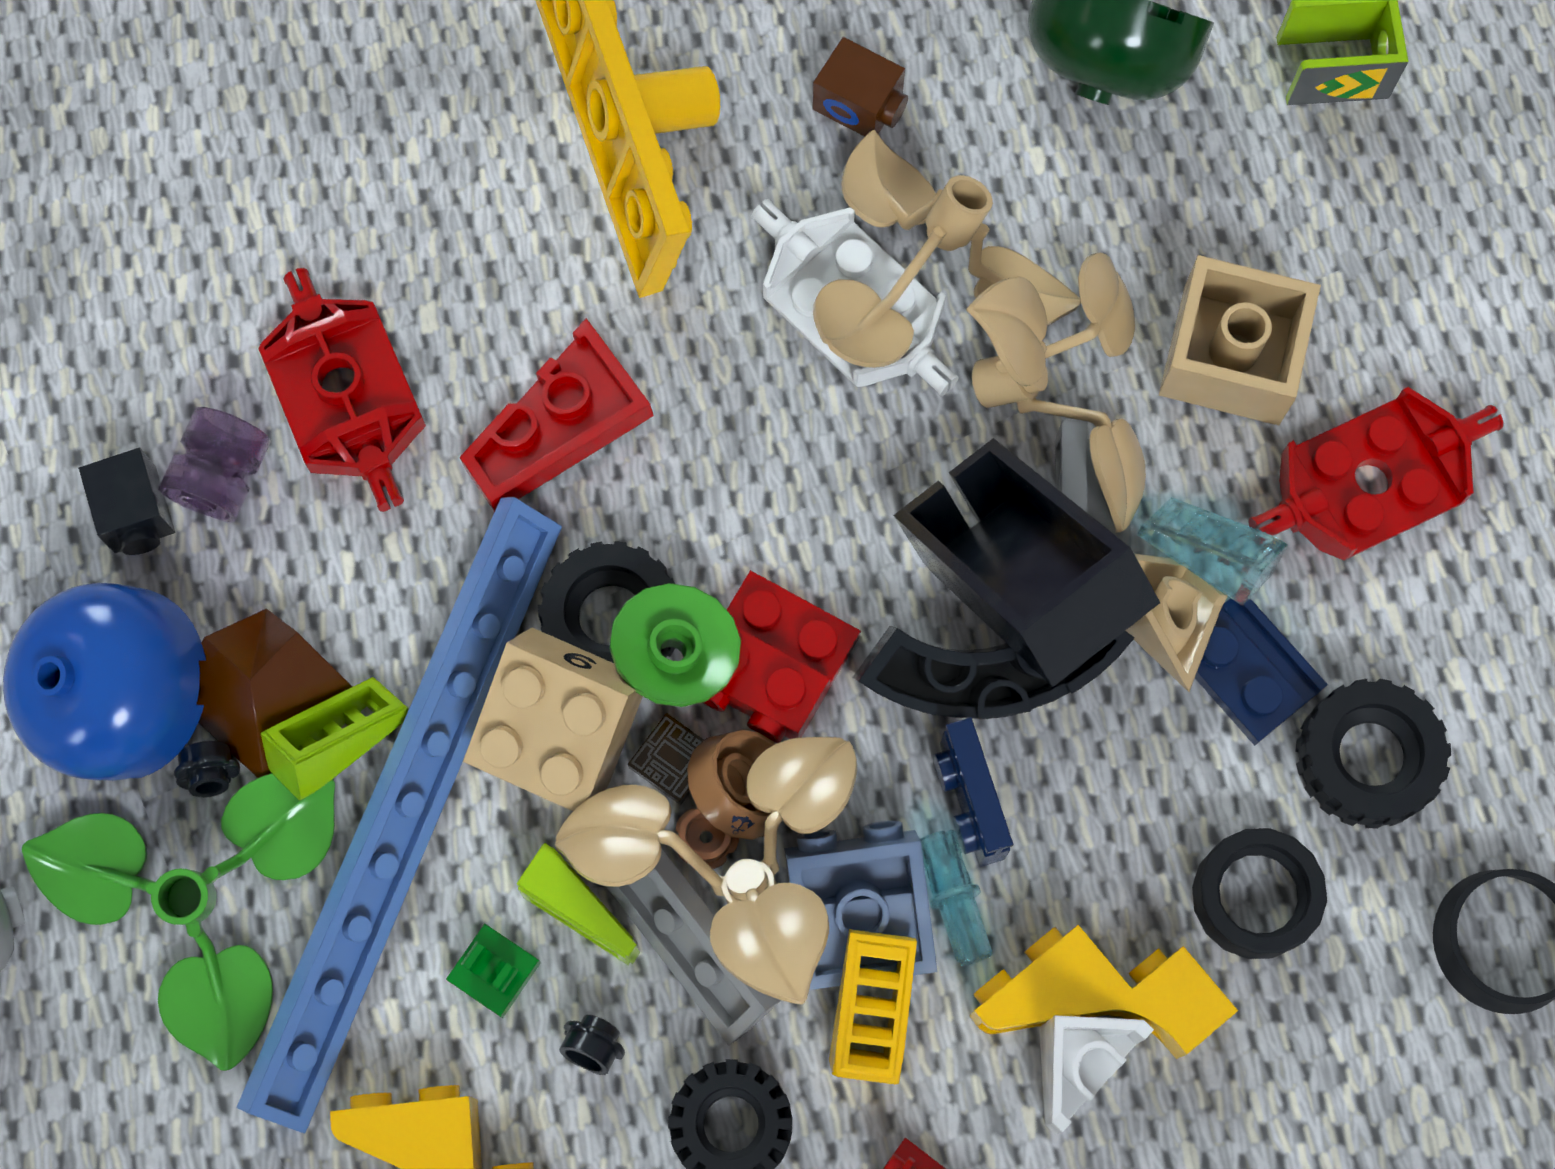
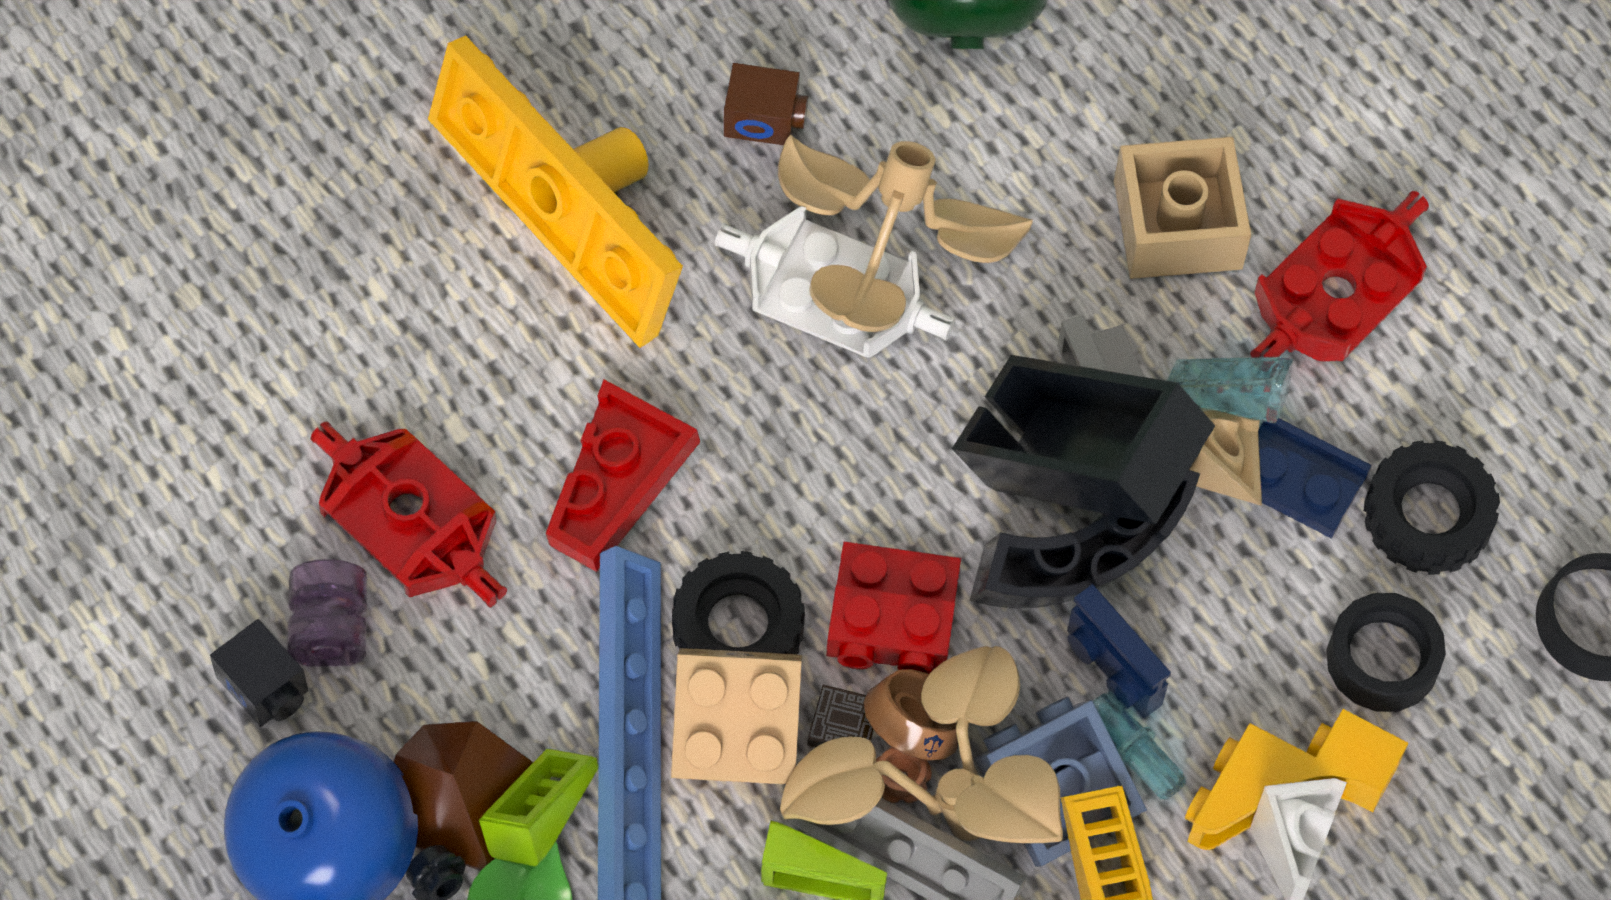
camera: 25 degrees left, 10 degrees down
(678, 619) = (819, 597): bright green dish -> none
(1018, 324) = (1011, 295): tan plant -> none

